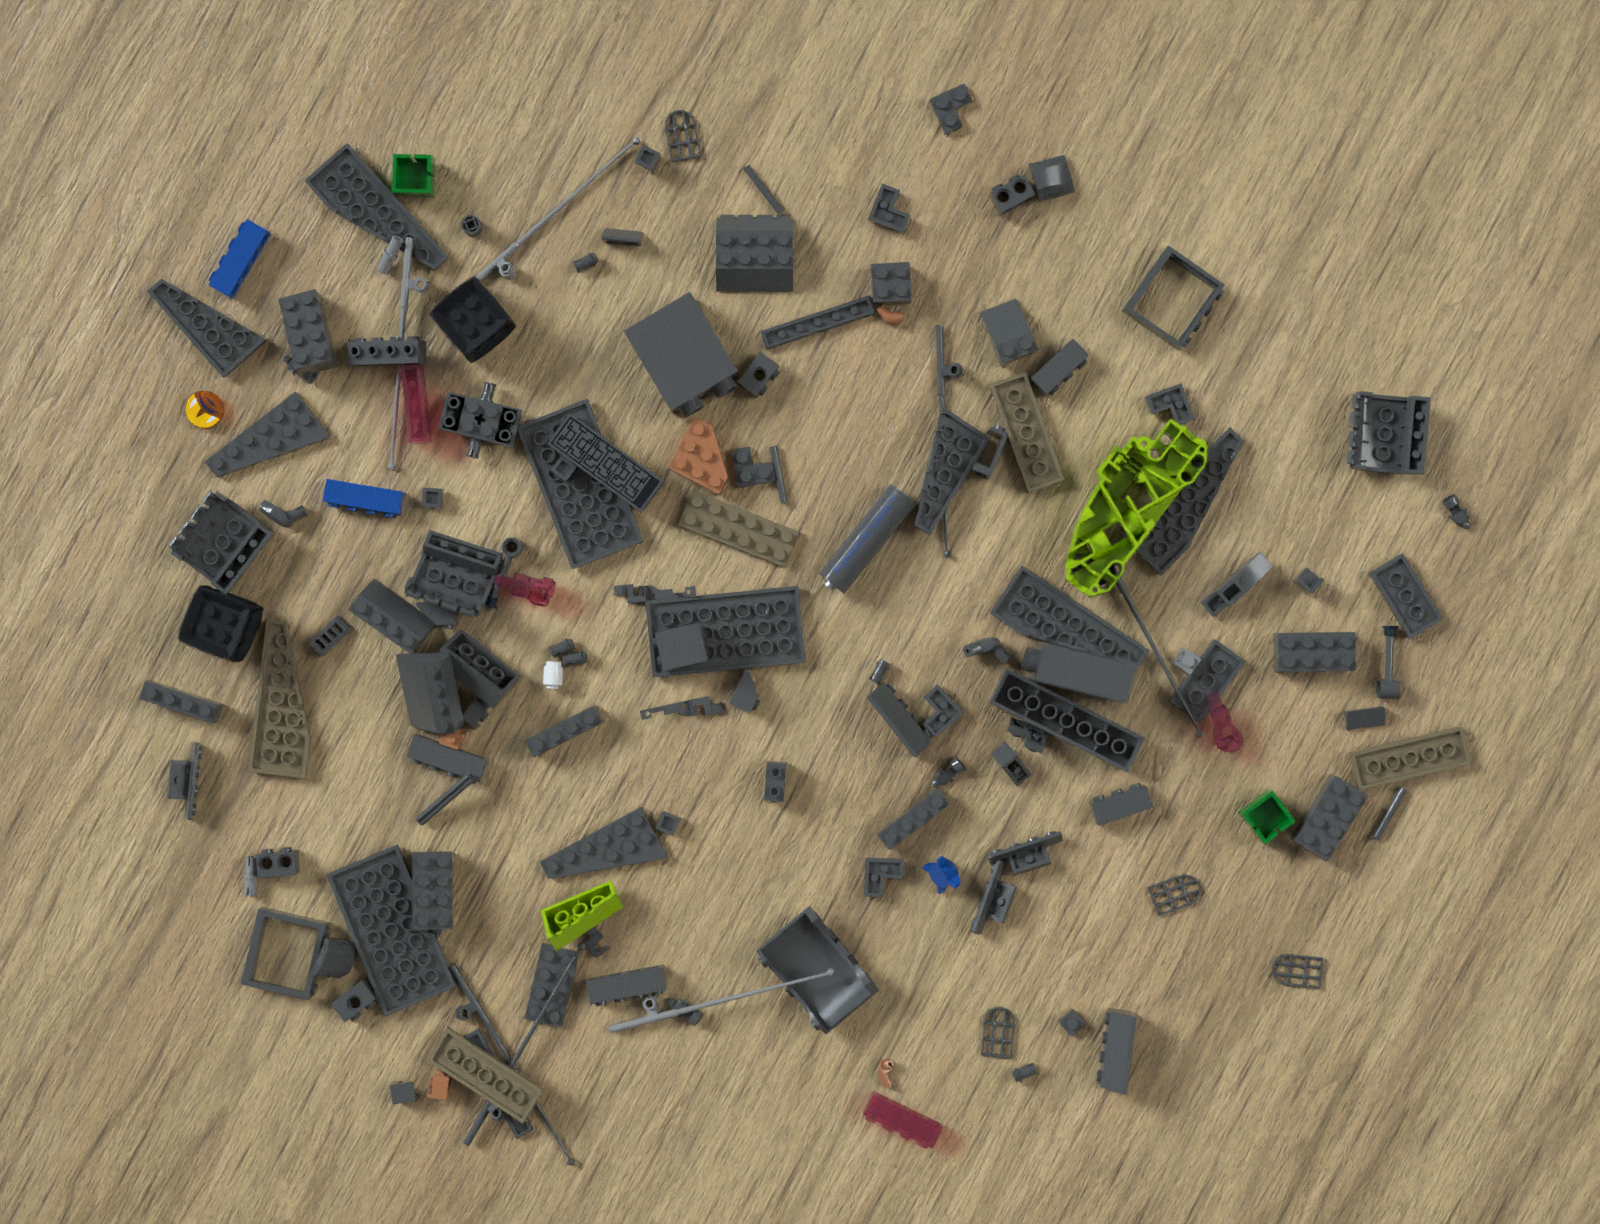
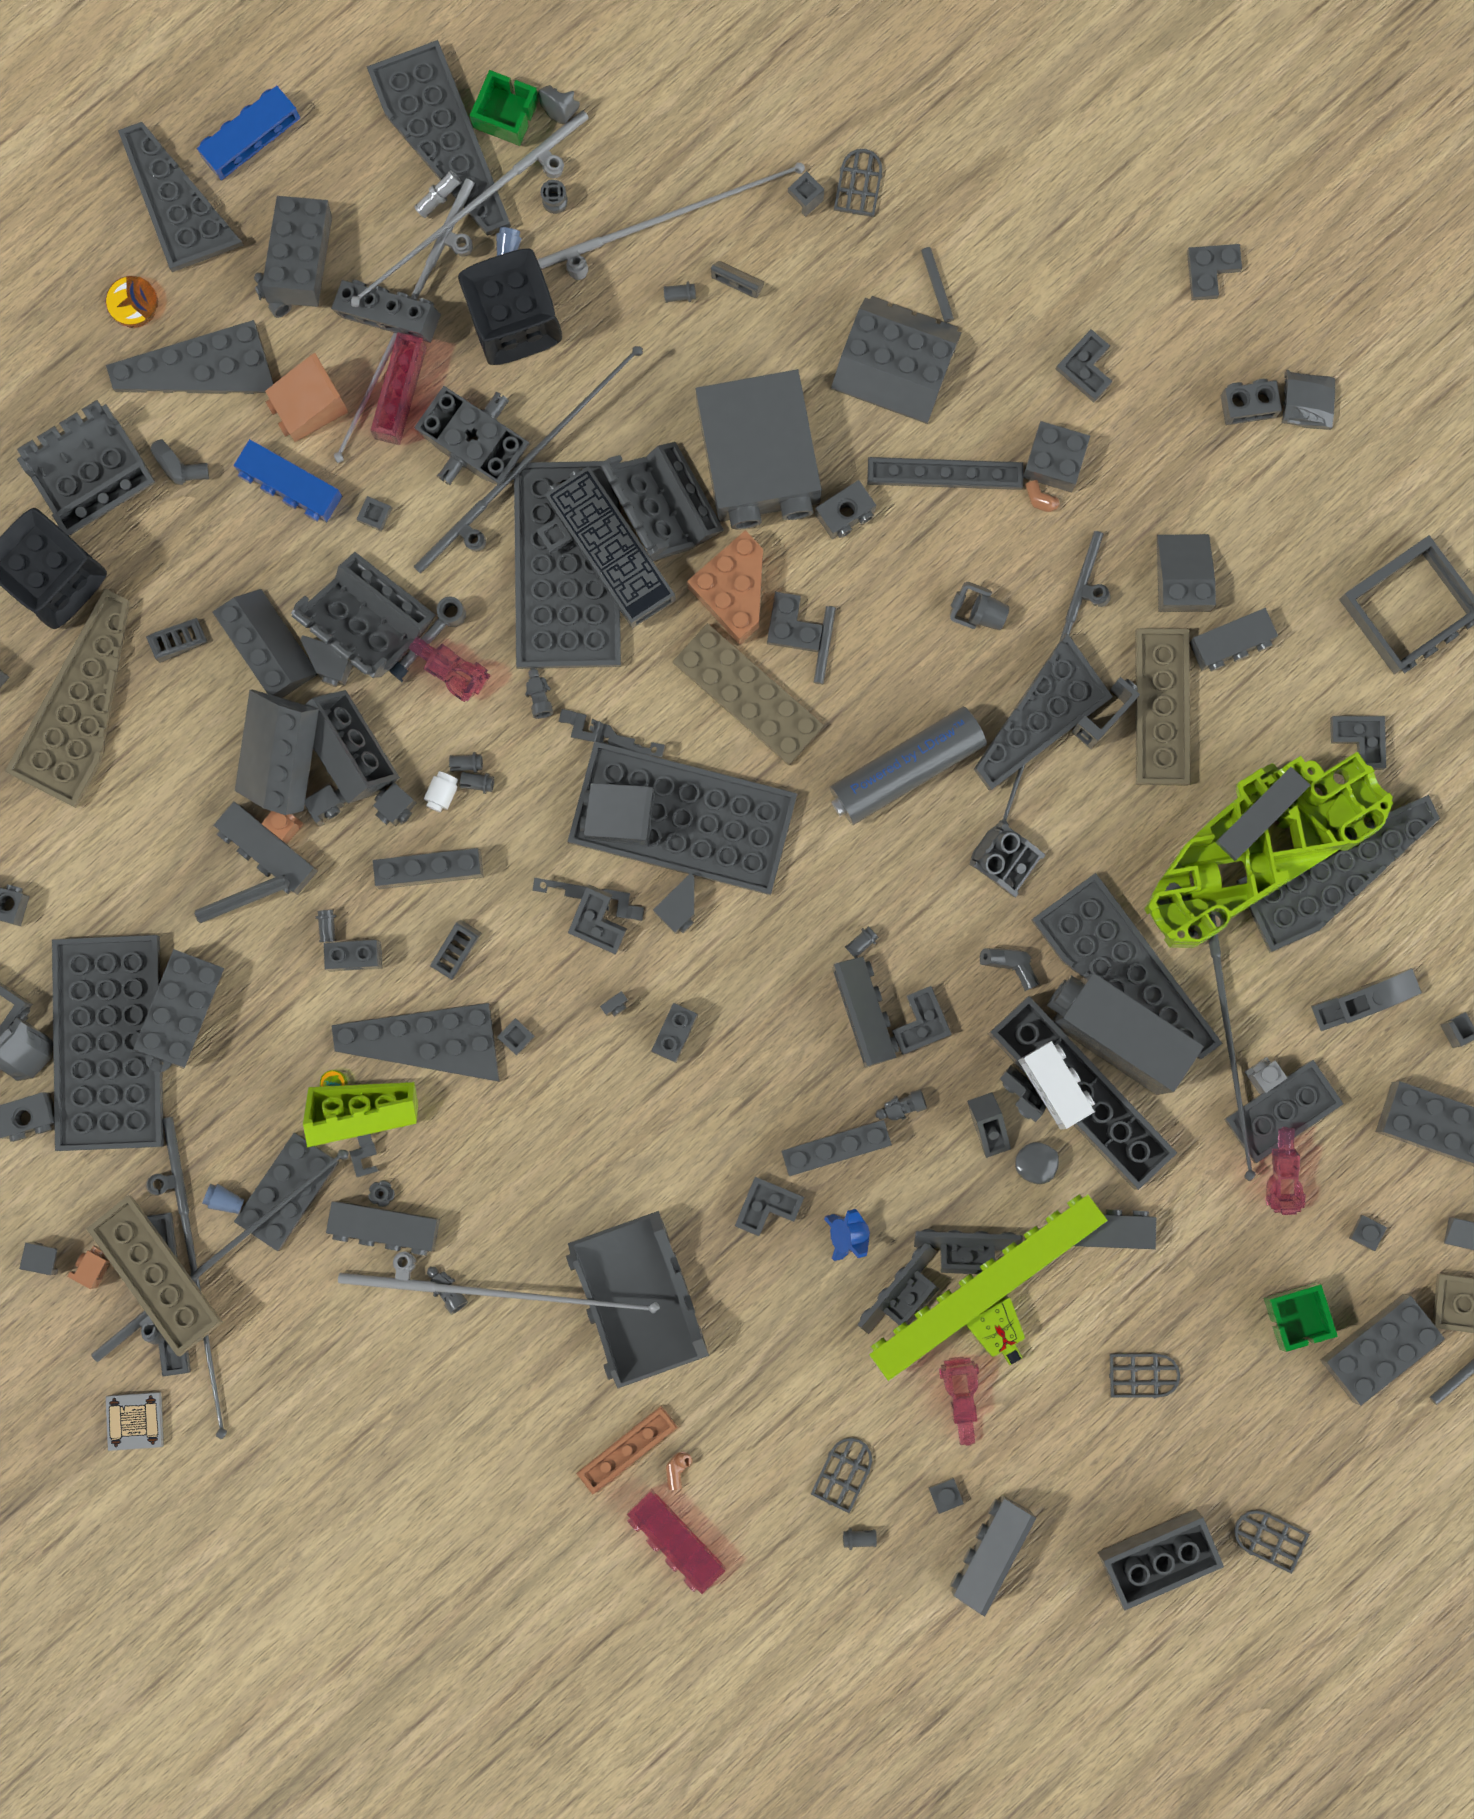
camera: 25 degrees right, 5 degrees down
(354, 436) = (305, 399): none -> nougat slope
(449, 159) = (558, 105): none -> dark grey hair
(451, 198) = (540, 153): none -> light grey piece
(452, 272) = (507, 240): none -> sand blue cone
(497, 484) = (462, 526): none -> dark grey piece
(509, 795) = (326, 925): none -> dark grey pin
(509, 1175) = (134, 1421): none -> tile
(511, 1006) = (222, 1199): none -> sand blue cone
(524, 696) = (393, 805): none -> dark grey brick
(536, 809) = (352, 955): none -> dark grey brick
(555, 897) = (333, 1078): none -> tile
(591, 578) = (537, 688): none -> dark grey piece
(607, 763) = (465, 928): none -> dark grey slope
(617, 967) = (374, 1196): none -> dark grey plate
(629, 416) = (663, 501): none -> dark grey slope
(692, 729) = (590, 921): none -> dark grey plate
(727, 777) = (615, 1005): none -> dark grey plate
(847, 1071) = (627, 1450): none -> nougat tile
(880, 410) = (985, 611): none -> dark grey piece
(956, 577) = (1005, 858): none -> dark grey slope
(1047, 724) = (1057, 1085): none -> white brick
(1049, 876) = (988, 1287): none -> lime brick
(1052, 778) = (1037, 1163): none -> dark grey hair
(1060, 958) = (962, 1404): none -> clear pink piece
(1066, 900) = (999, 1330): none -> lime torso
(1121, 486) = (1262, 814): none -> dark grey tile
(1229, 1012) = (1160, 1559): none -> dark grey brick
(1292, 742) = (1367, 1233): none -> dark grey plate

